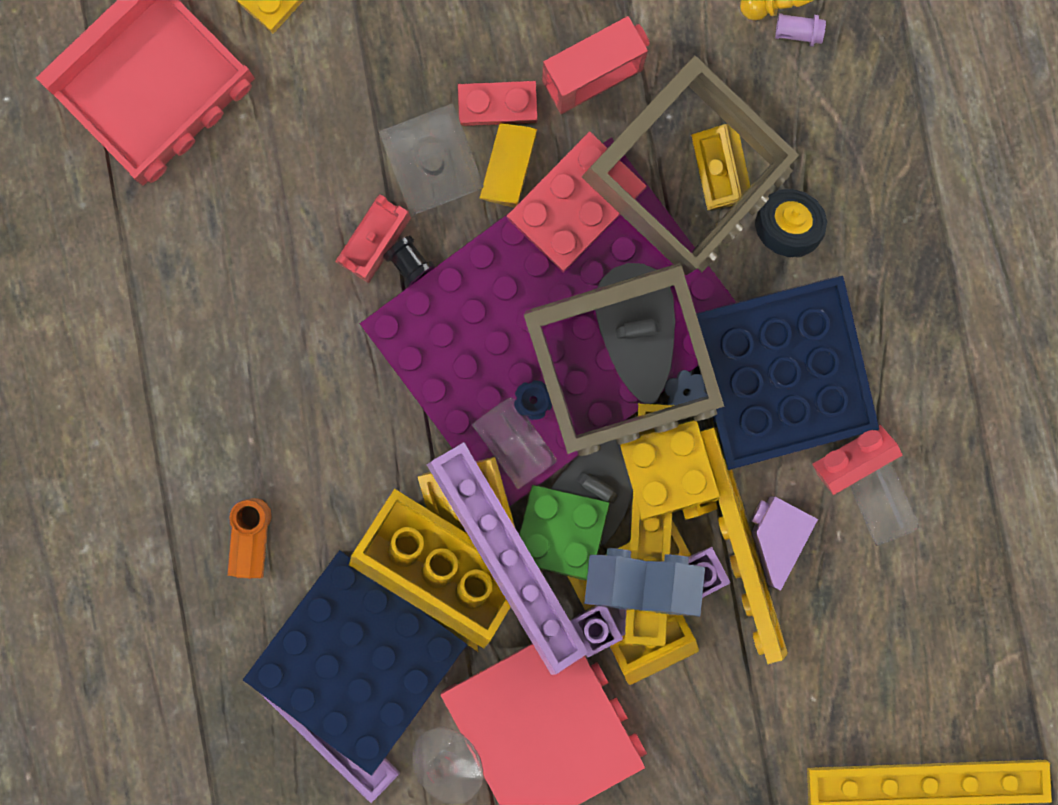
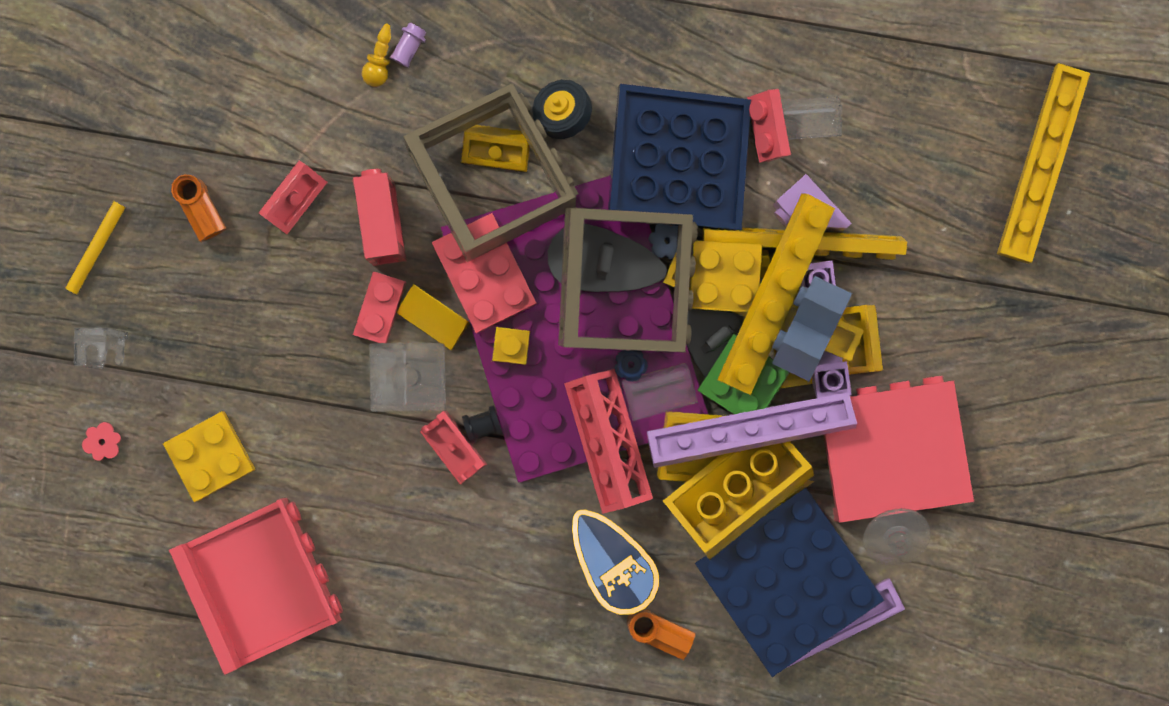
camera: 65 degrees left, 0 degrees up
(305, 461) = (614, 564): none -> shield
(435, 399) = (603, 442): none -> coral fence
(506, 260) = (511, 346): none -> yellow plate
(670, 532) = (776, 293): none -> yellow plate

